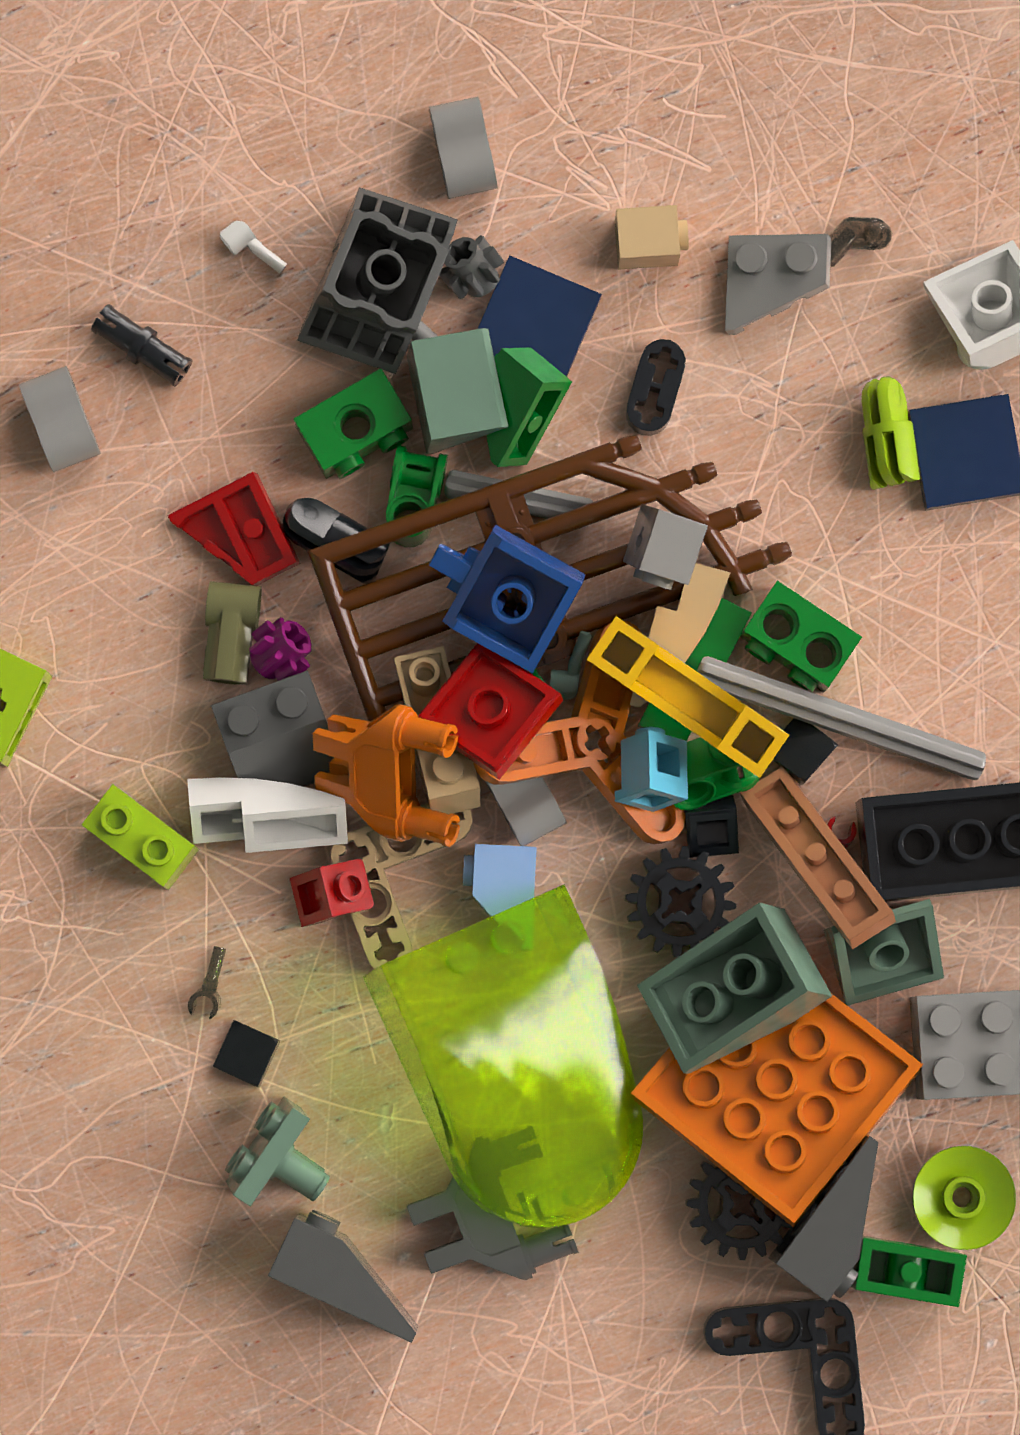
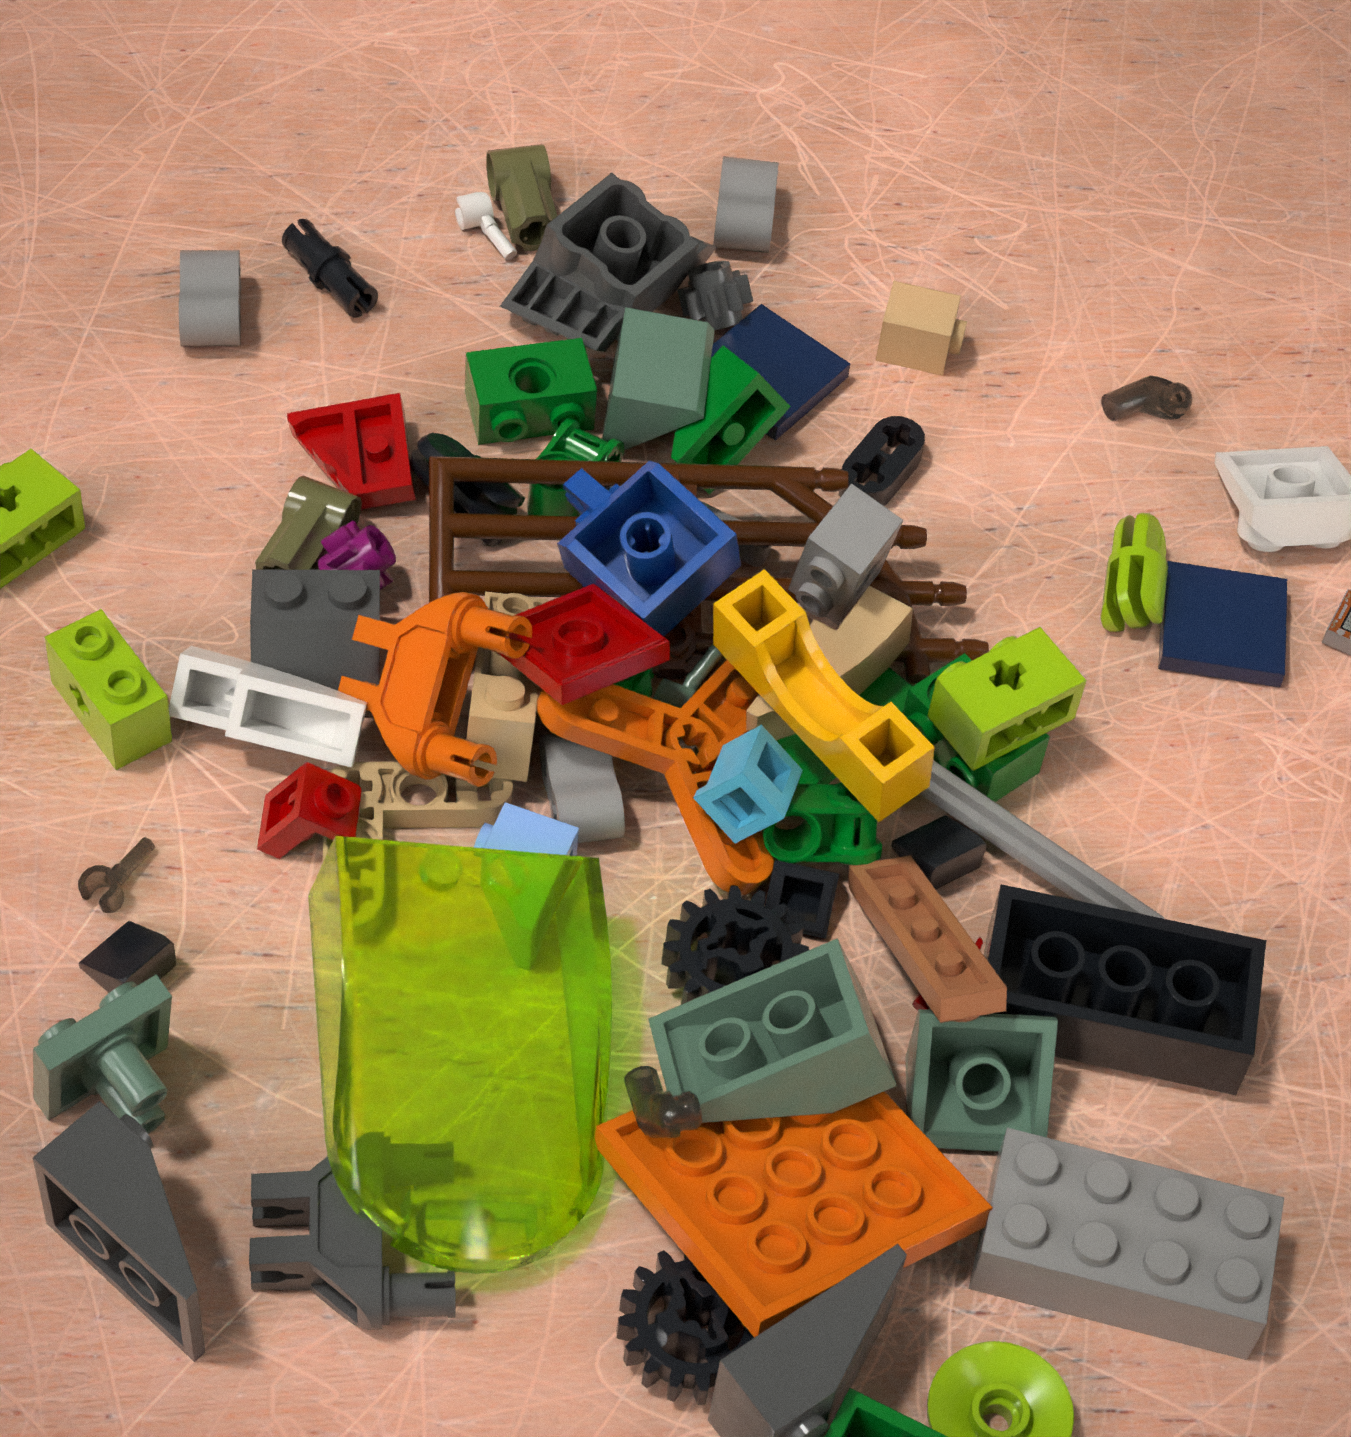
camera: 15 degrees right, 30 degrees down
(268, 195) = (523, 186): none -> olive piece
(667, 1073) = (658, 1111): none -> clear smoke arm
(772, 274) = (1049, 399): light grey wing -> none
(849, 613) = (1005, 697): none -> lime brick

